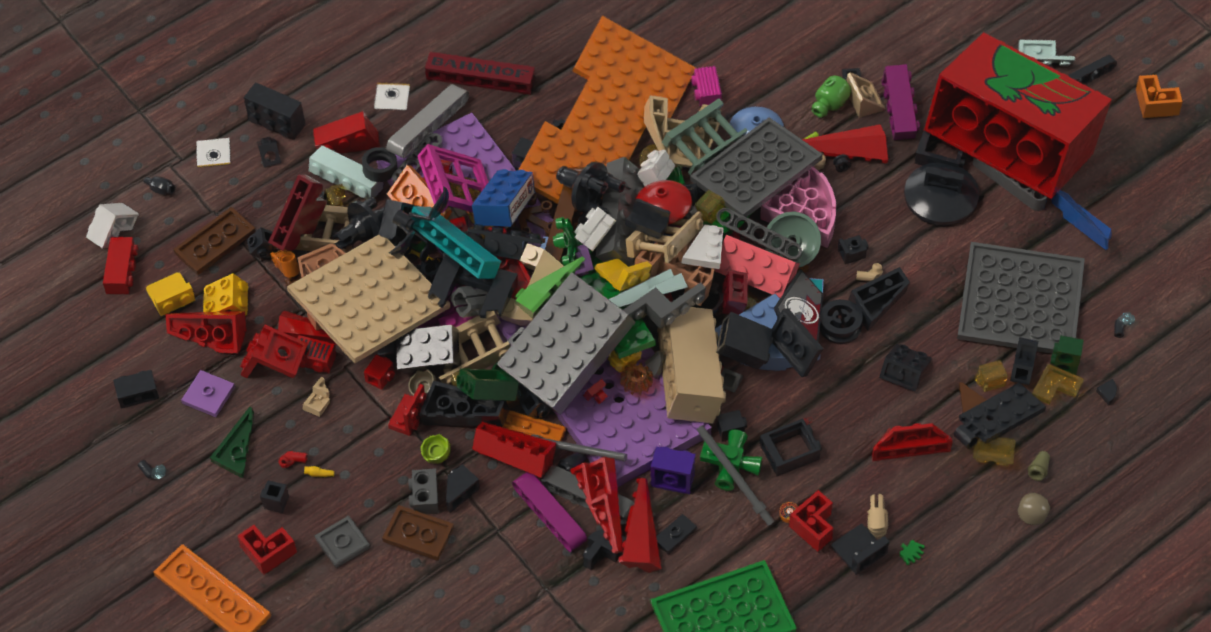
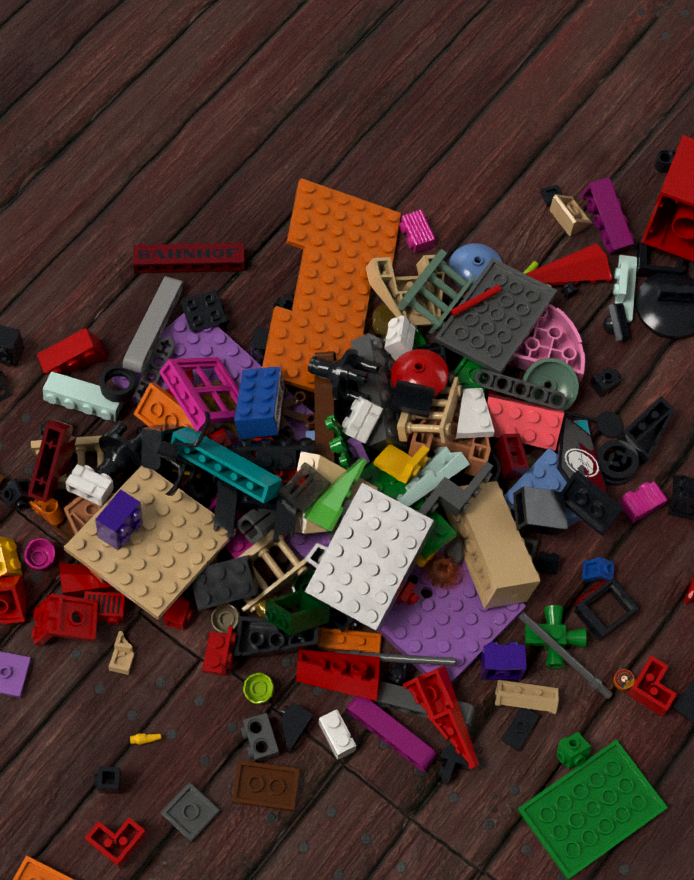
camera: 20 degrees left, 10 degrees up
(234, 448) = (50, 733): dark green wing -> none
(267, 298) = (39, 554): none -> dark pink hair
(291, 457) = (112, 728): red arm -> none
(326, 240) = (90, 484): none -> white brick
(335, 194) = (77, 421): clear yellow bracket -> none
(341, 268) = (119, 520): none -> dark purple brick
(391, 96) = (104, 298): white sticker -> none
(480, 119) = (205, 312): none -> black bracket
(497, 502) = (337, 734): none -> white brick
(523, 275) = (309, 490): none -> clear smoke plate
(641, 540) = (493, 749): red wedge -> none
(688, 505) = (526, 696): none -> tan container
(709, 206) = (463, 367): clear yellow brick -> none
(718, 560) = (573, 750): none -> green brick
(730, 421) = (543, 596): black brick -> none
(740, 149) = (476, 300): none -> red bar
(745, 396) = (548, 563): none -> black tile
(792, 409) = (597, 569): none -> blue bracket
(831, 95) = (540, 220): bright green piece -> none
(841, 286) = (607, 422): none -> black piece
(857, 360) = (643, 501): none -> dark pink brick
(874, 273) = (630, 405): tan arm -> none
(880, 198) = (617, 322): none -> black tile
(897, 170) = (625, 286): none -> light aqua bracket

